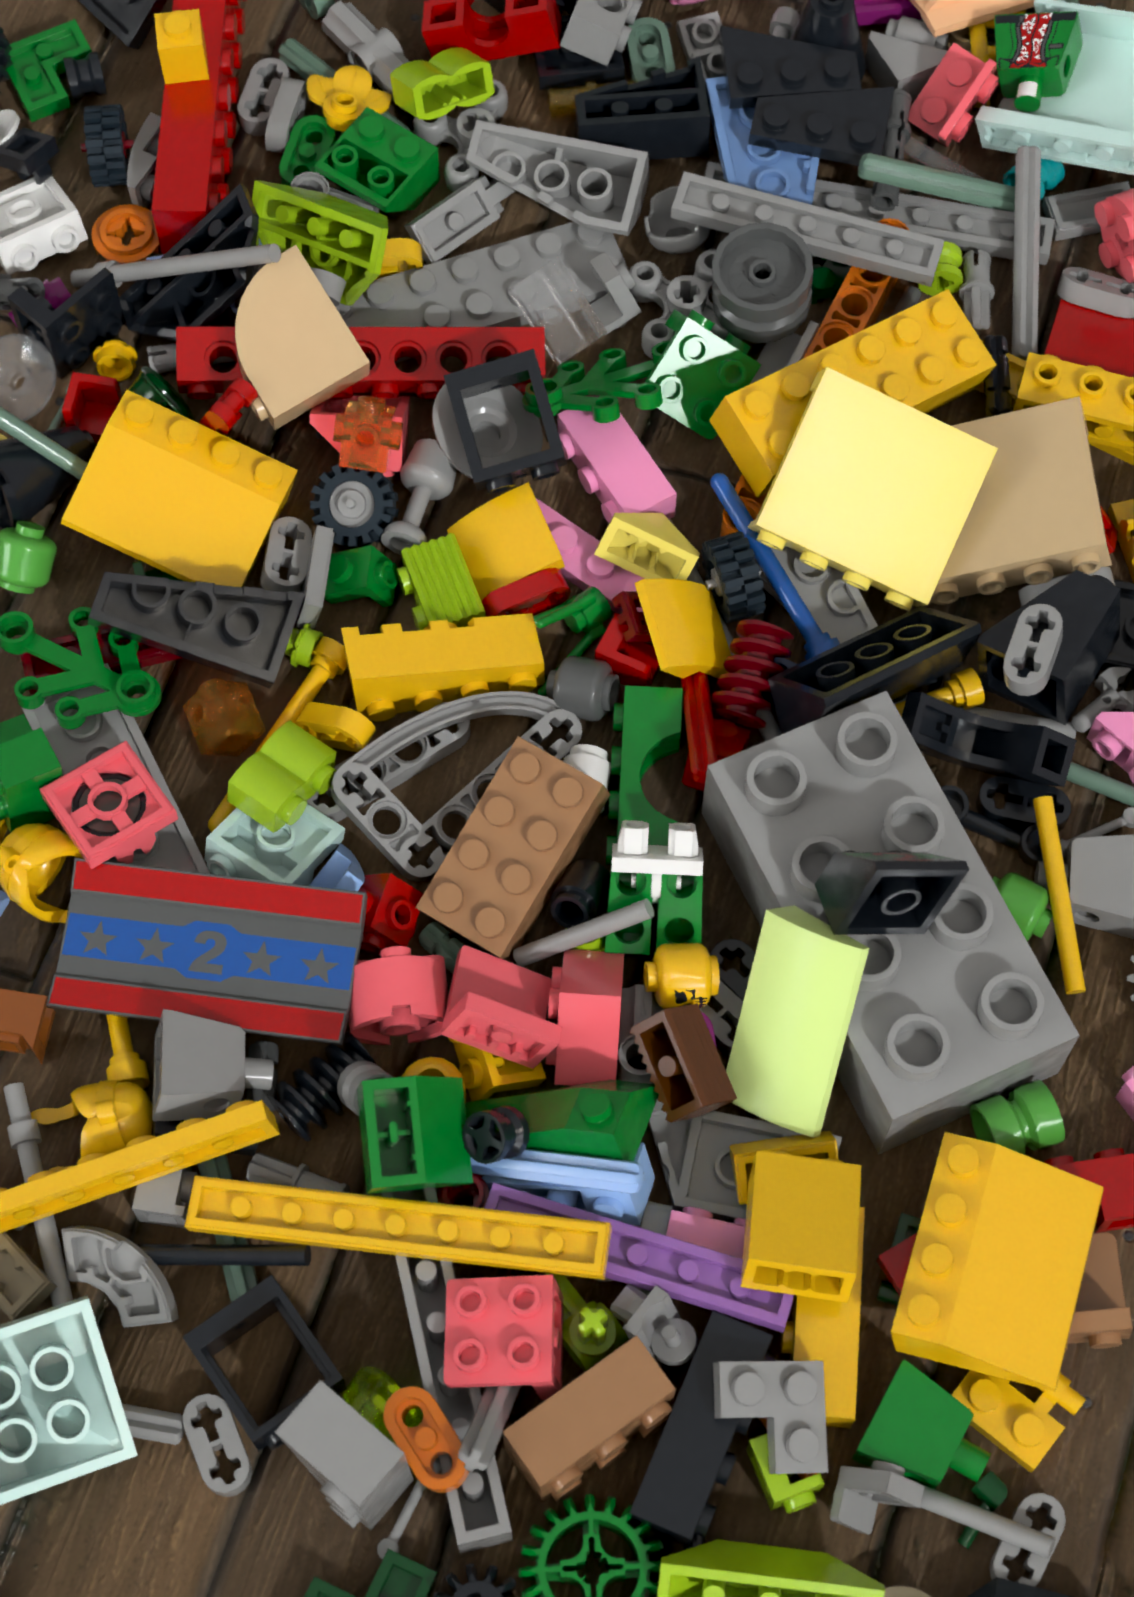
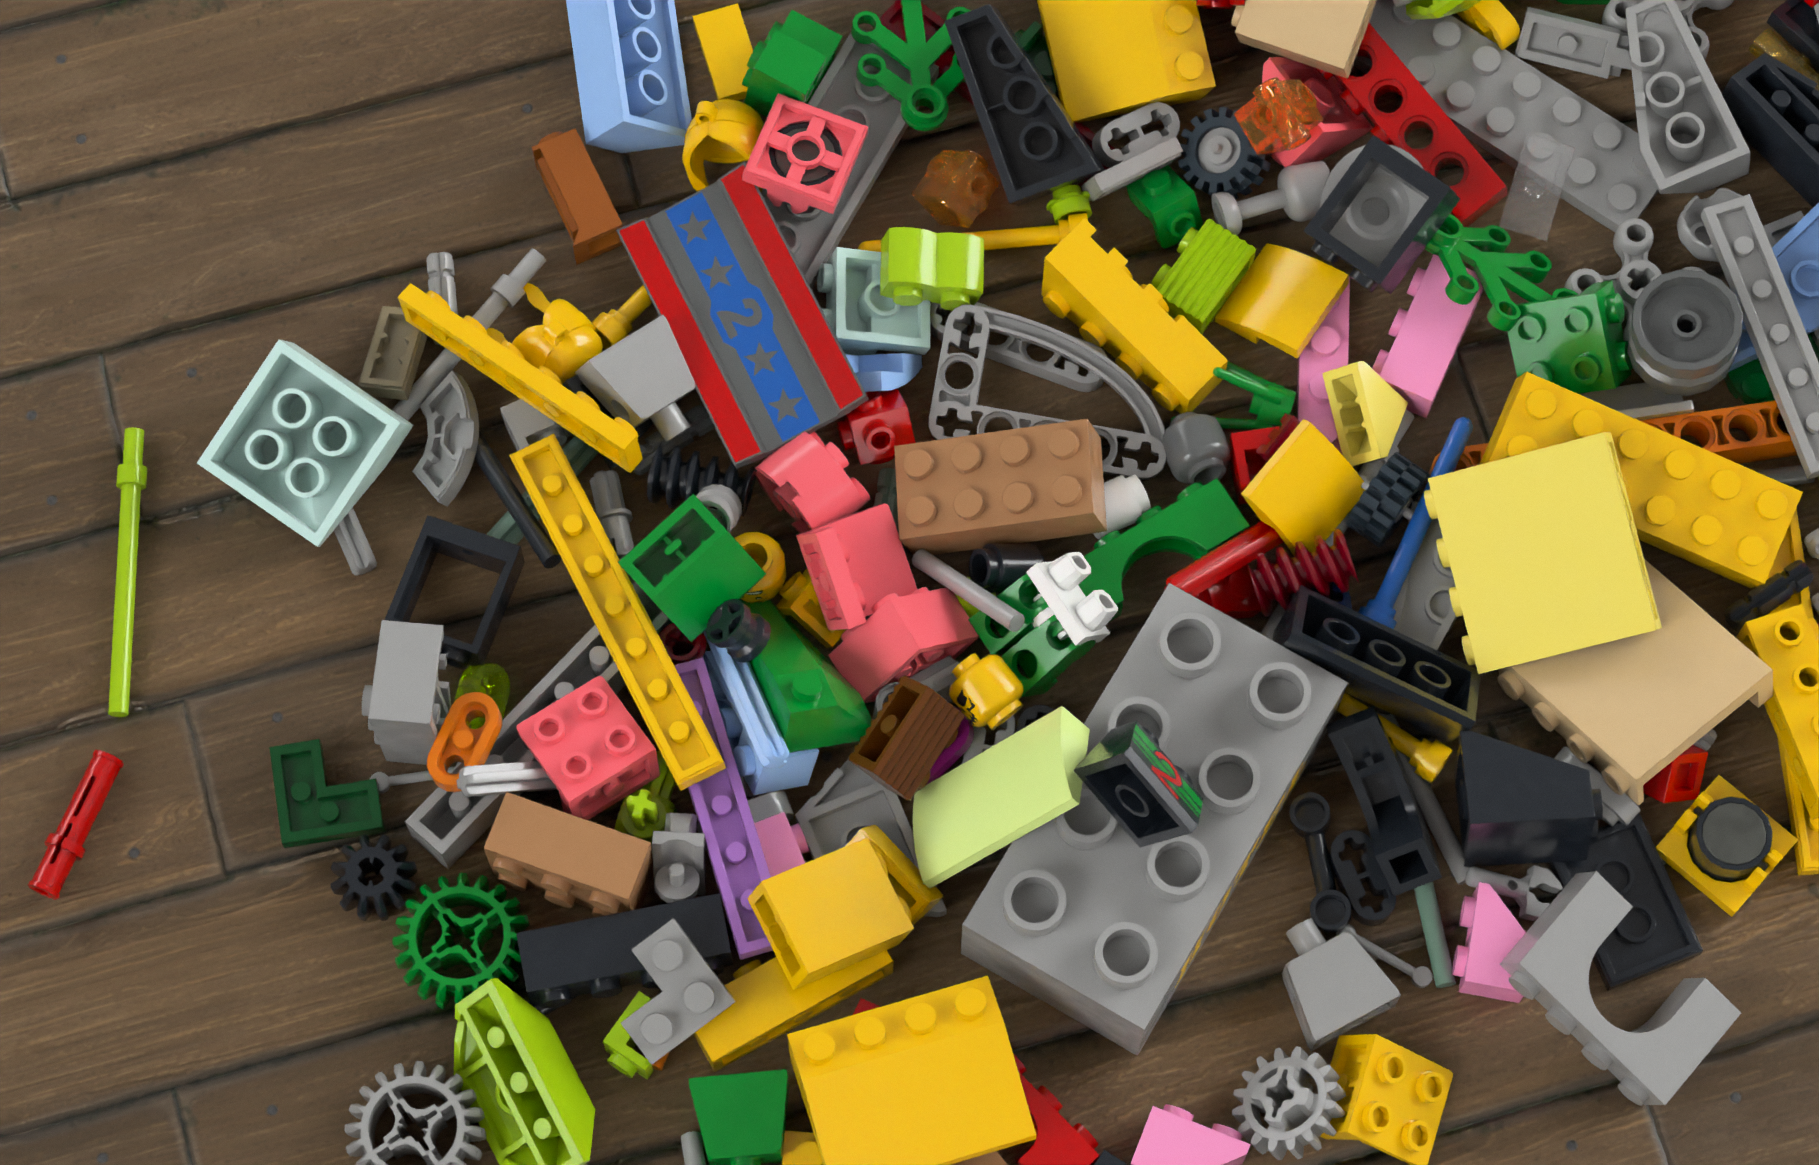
camera: 55 degrees right, 5 degrees up
(205, 1450) = (363, 595): light grey beam -> none
(336, 726) = (1011, 278): yellow beam -> none
(528, 595) = (1248, 348): red beam -> none
(618, 304) = (1598, 222): light grey bracket -> none
(863, 1488) = (658, 1109): light grey bracket -> none
(1022, 647) = (1478, 779): light grey beam -> none
(1023, 1120) = (1053, 1039): bright green wheel -> none
(1026, 903) = (1254, 926): bright green head -> none
(1059, 895) = (1286, 950): yellow bar -> none

